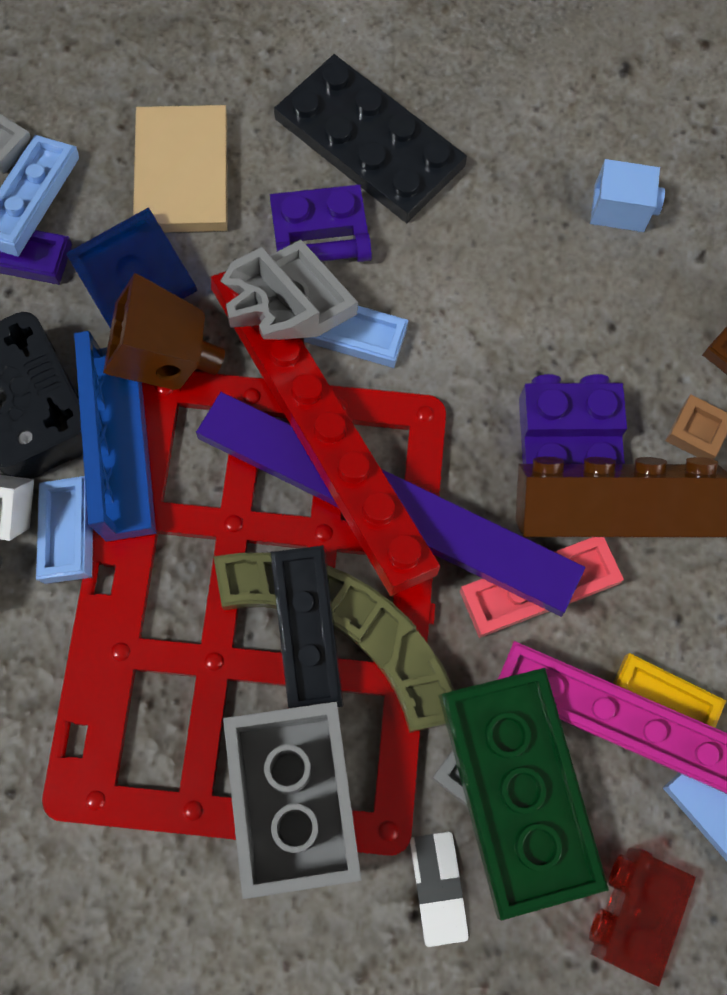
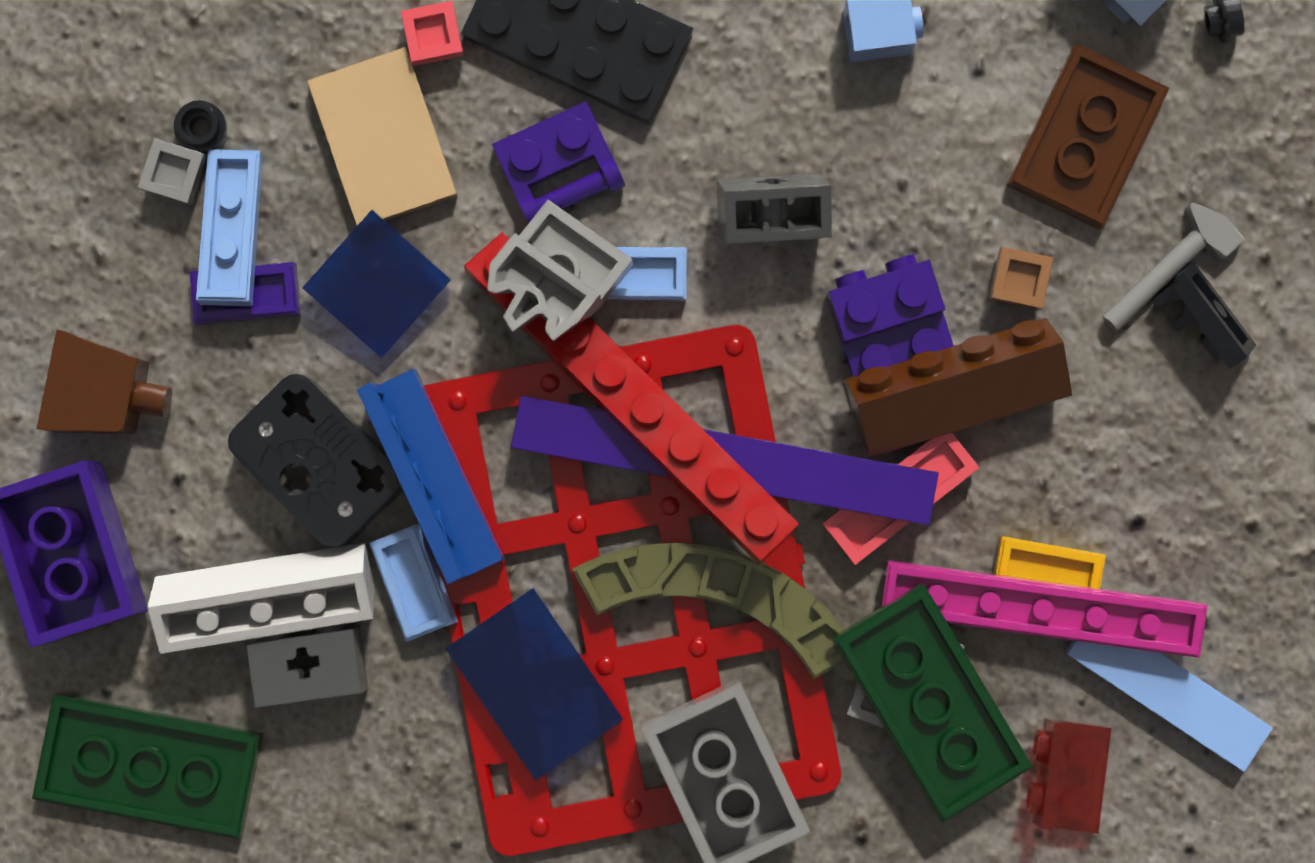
camera: 15 degrees left, 15 degrees up
(36, 115) = (189, 115): none -> black plate
(140, 655) = (534, 683): none -> clear blue tile
(158, 337) = (437, 359): reddish brown torso -> none
(251, 101) = (432, 33): none -> coral plate
(306, 627) = (686, 613): black tile -> none
(439, 889) = (879, 807): white sticker -> none
(496, 302) = (774, 208): none -> dark grey brick

